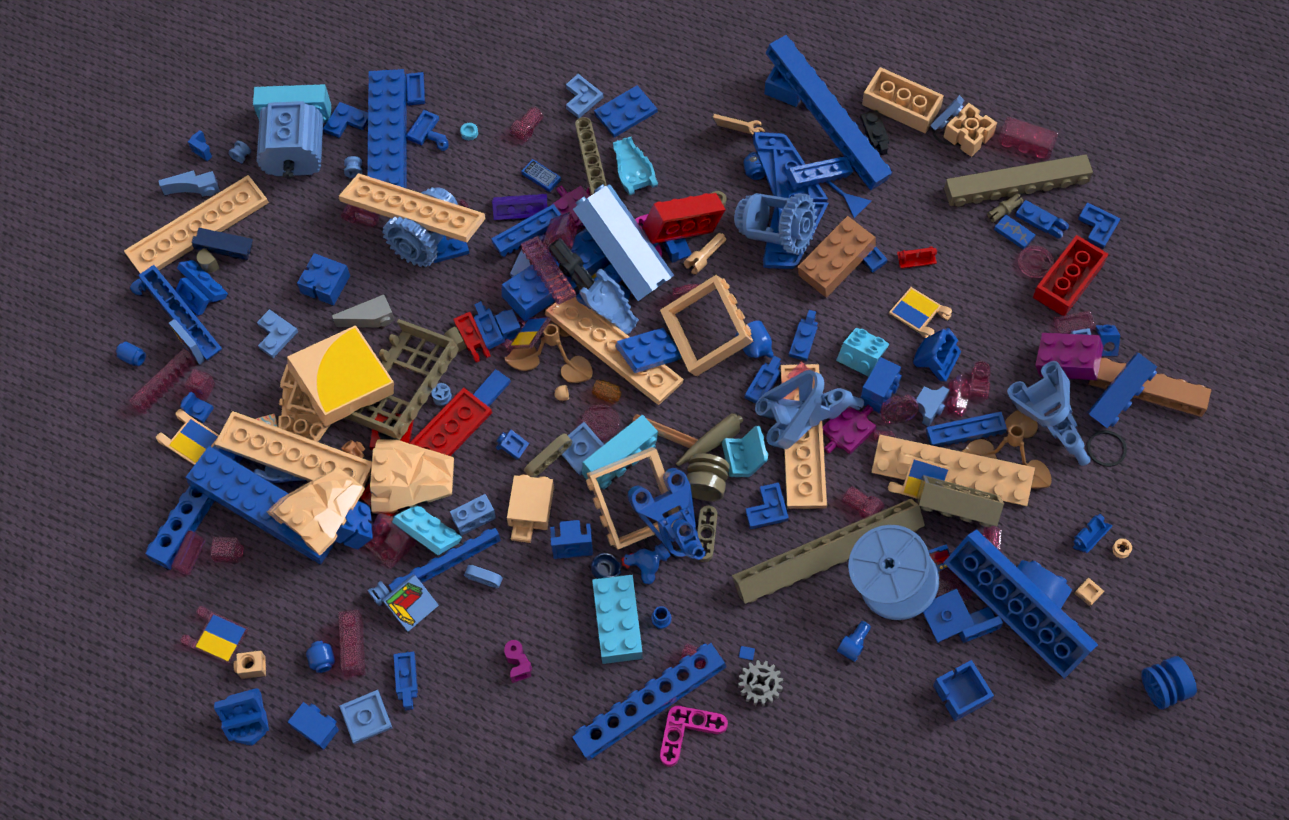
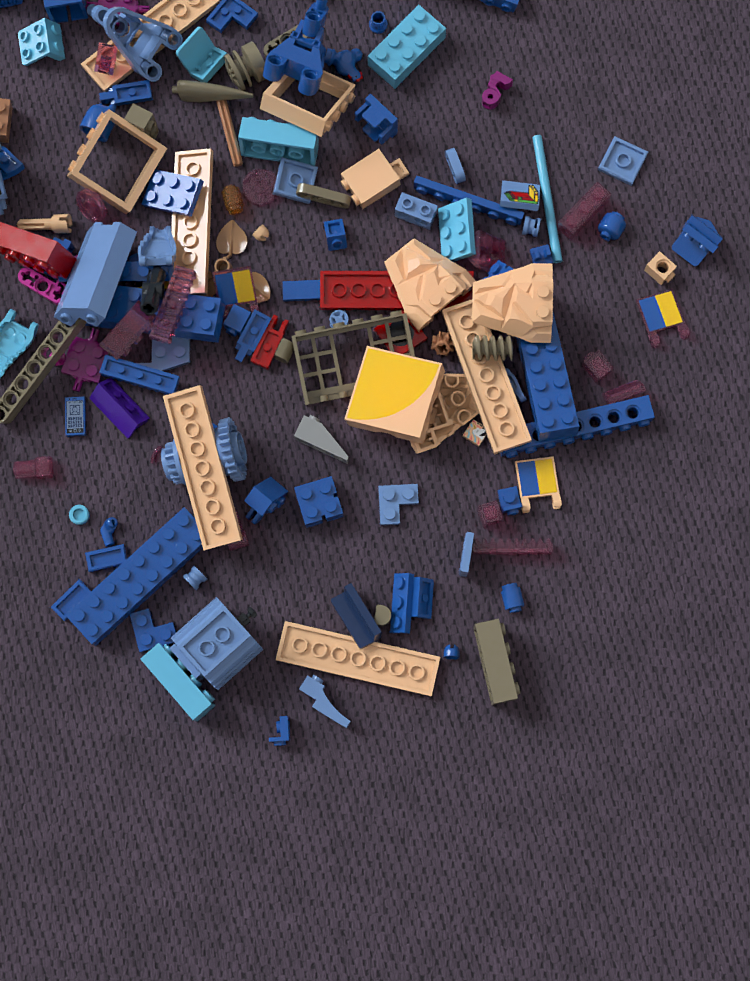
camera: 130 degrees left, 15 degrees up
(99, 303) = (495, 661): none -> dark tan brick
(178, 310) = (445, 590): blue slope -> none
(239, 152) = (261, 690): medium blue wheel -> none
(304, 466) = (492, 347): none -> dark tan piece
(313, 725) = (661, 186): blue brick -> none
(350, 584) = (541, 255): none -> blue tile
(358, 244) = (265, 499): none -> blue brick
(392, 628) = (547, 199): none -> medium azure piece
(406, 678) = (573, 155): blue hinge -> none
(605, 566) = (375, 84): dark blue hair -> none
(724, 366) = (142, 120): none -> dark tan brick
(804, 337) = (62, 95): blue hinge -> none

